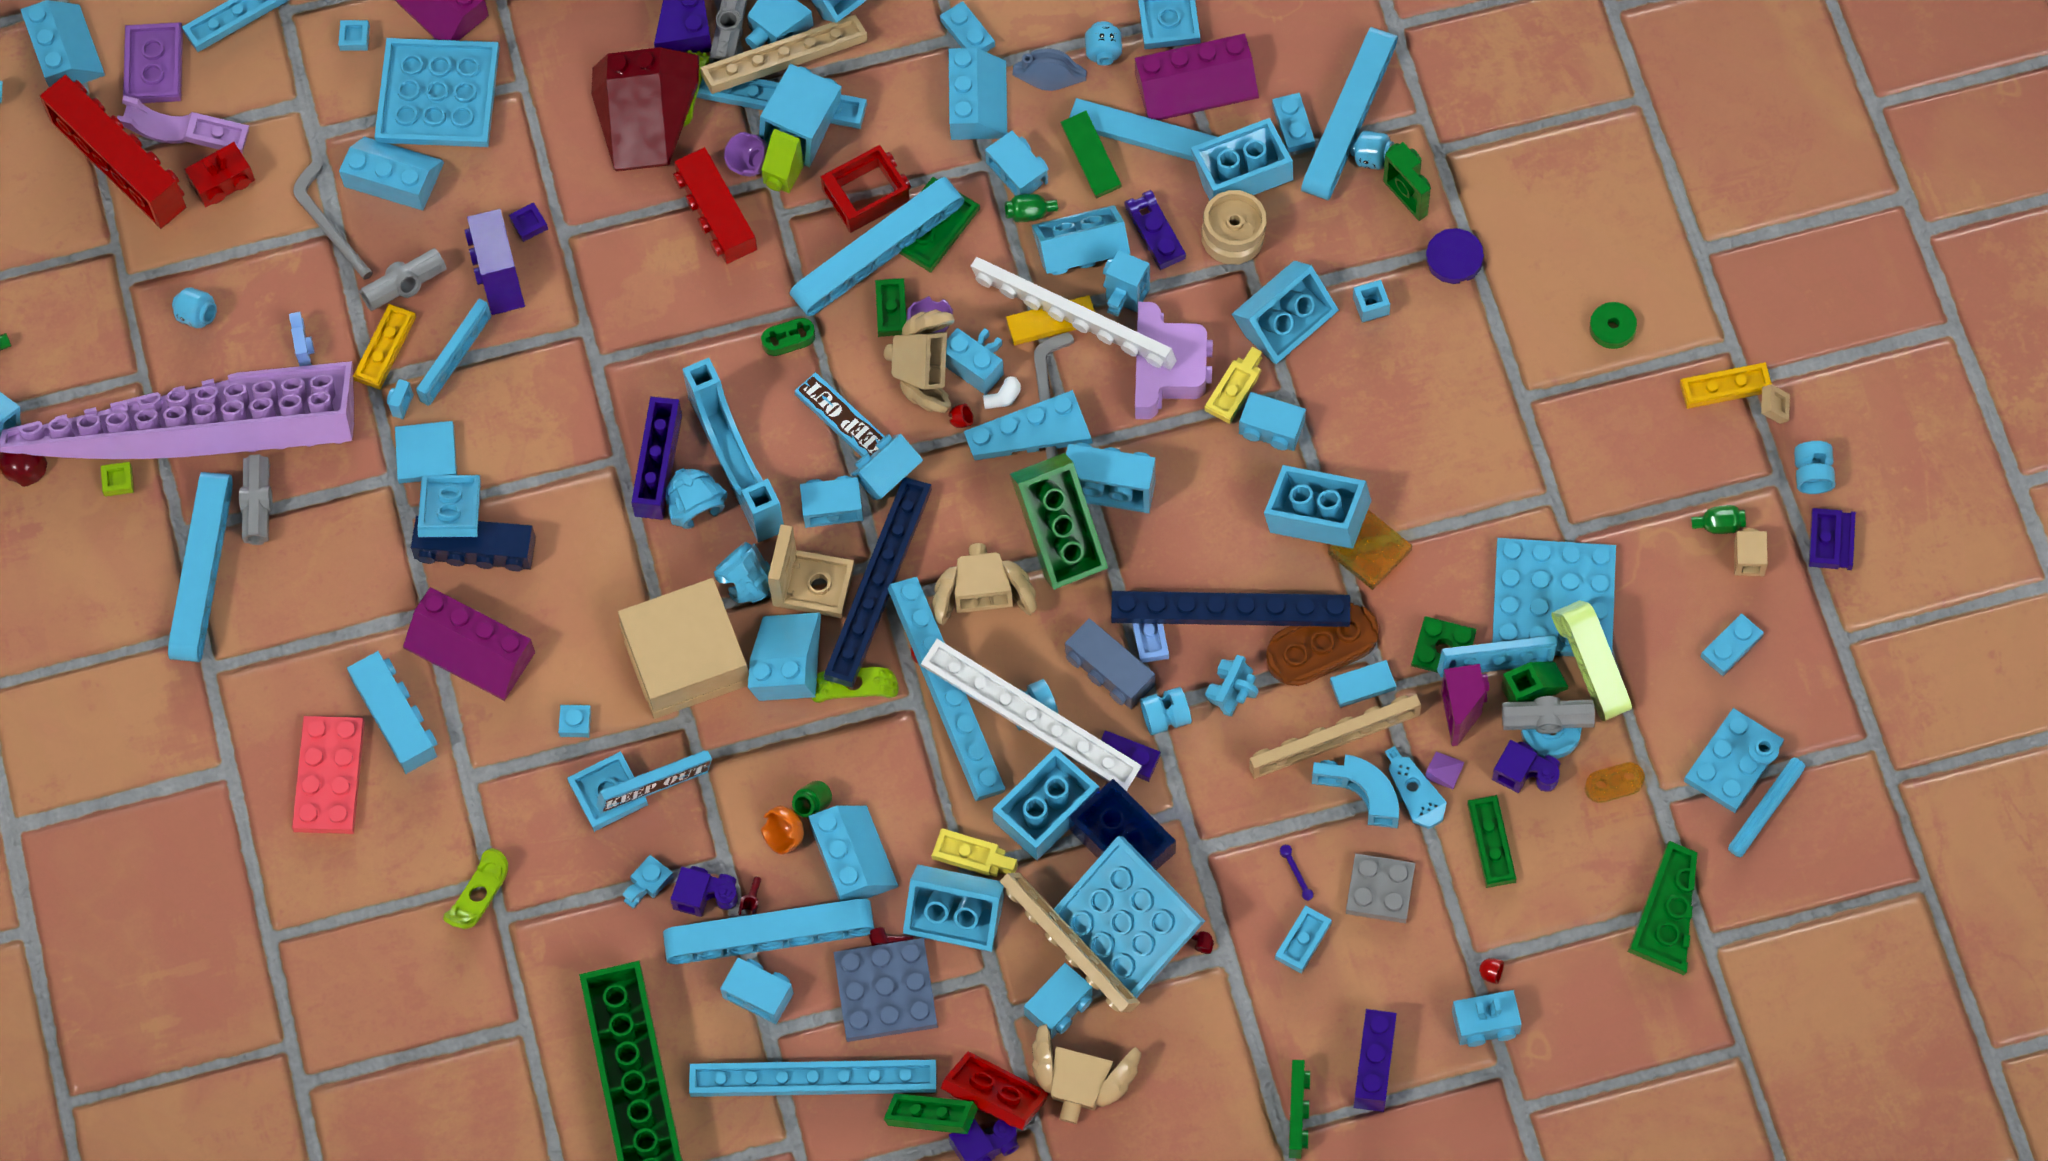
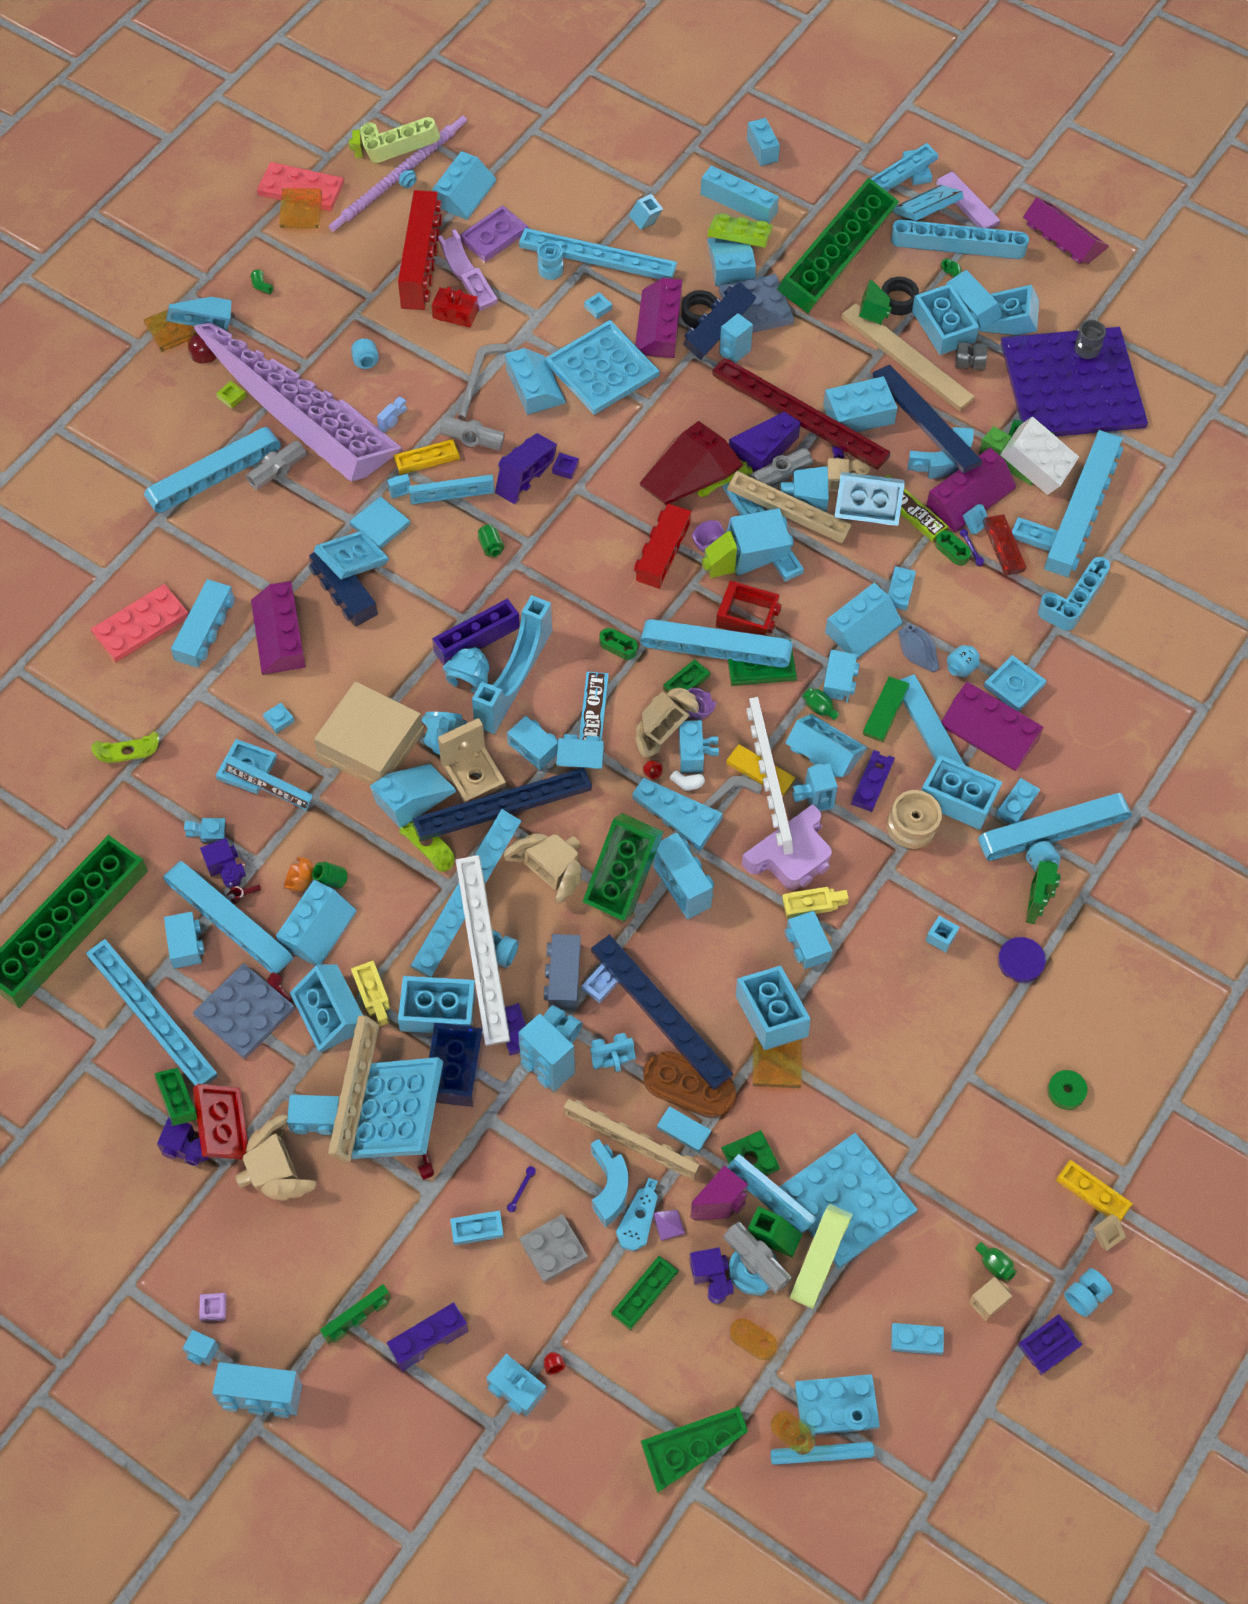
camera: 45 degrees right, 5 degrees down
(252, 35) = (550, 260): none -> medium azure wheel
(554, 362) = (490, 541): none -> green brick
(1191, 739) = (546, 1053): none -> medium azure brick
(1285, 311) = (889, 892): medium azure slope -> none
(1732, 813) = (794, 1433): none -> clear yellow plate

